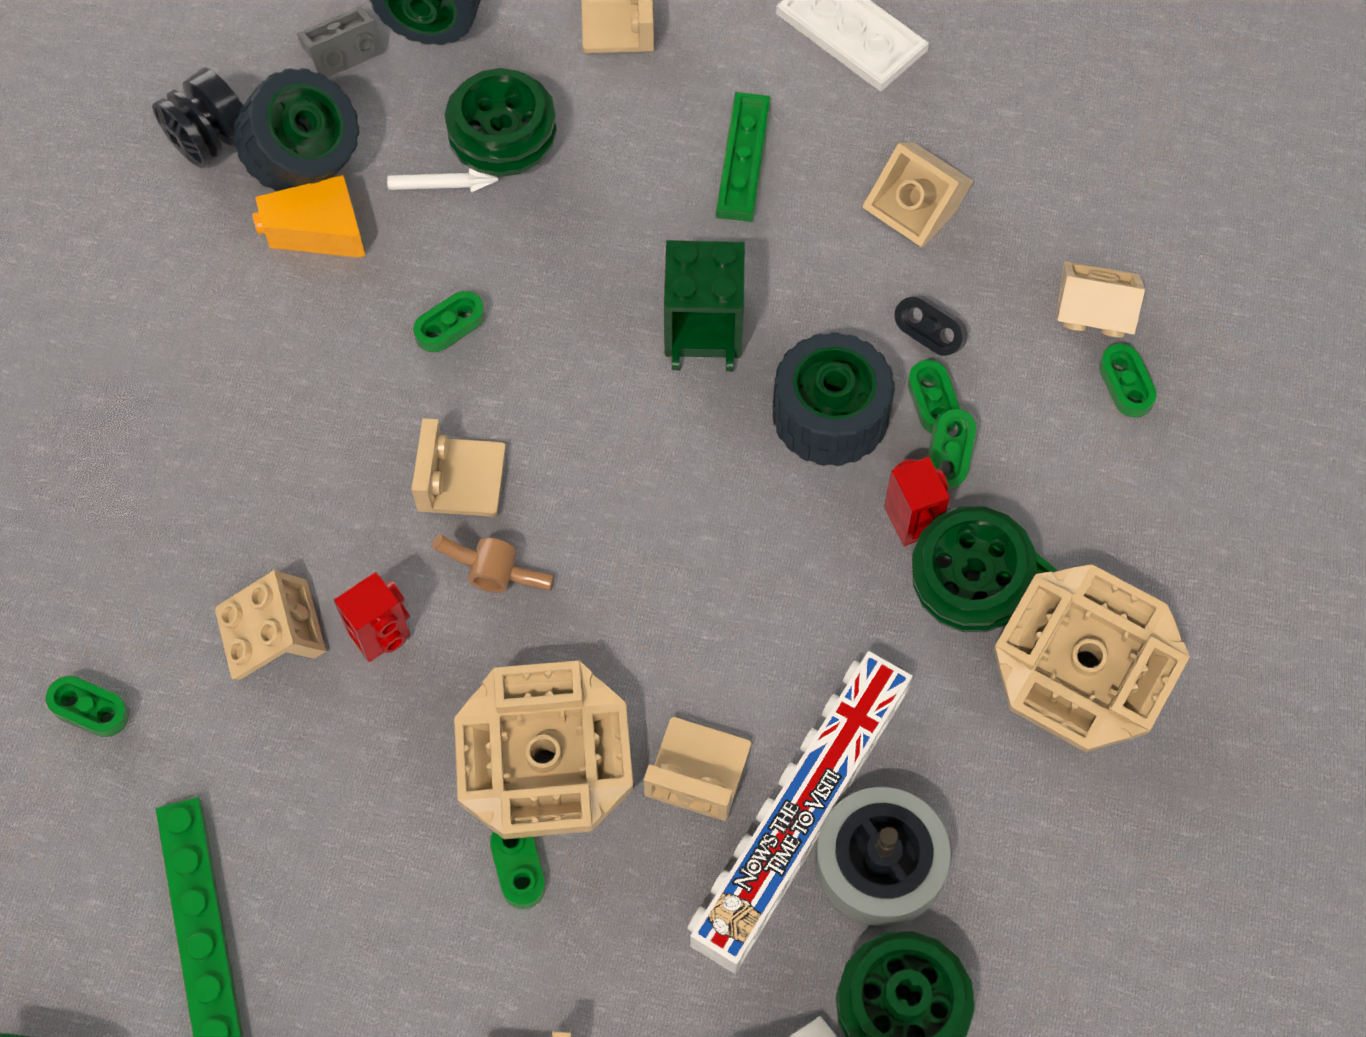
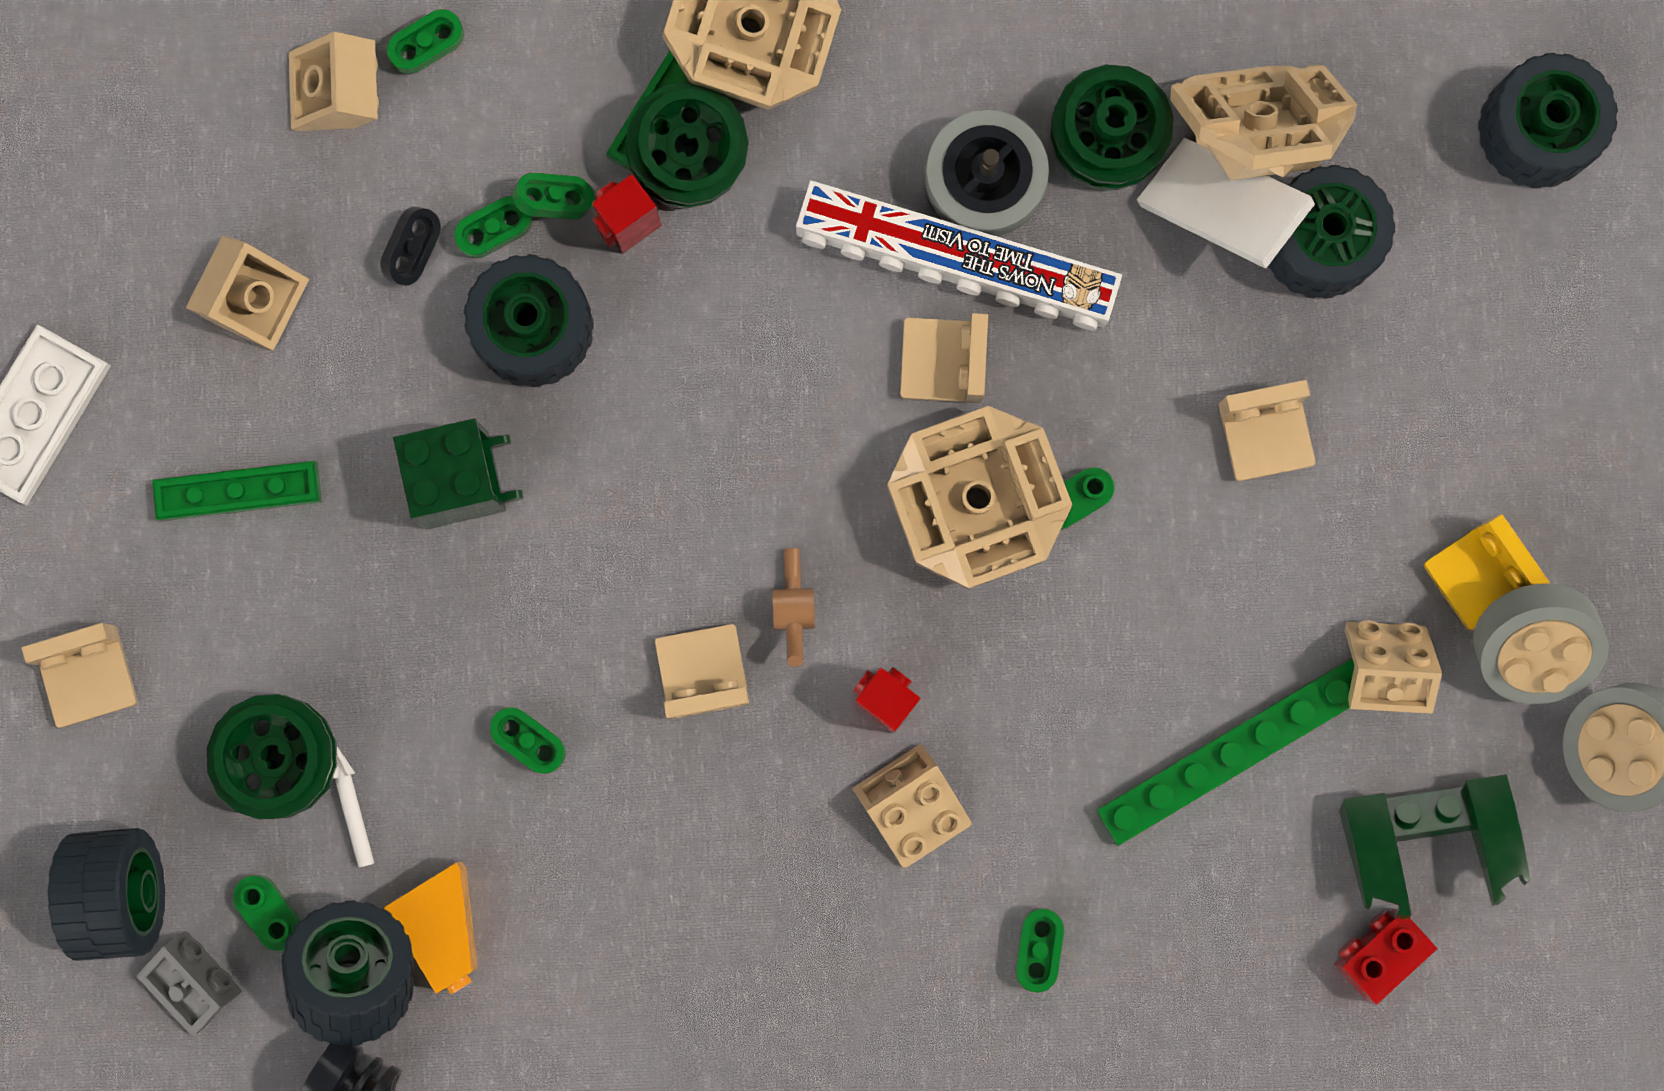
camera: 110 degrees left, 20 degrees up
(380, 106) = (269, 910): none -> green plate

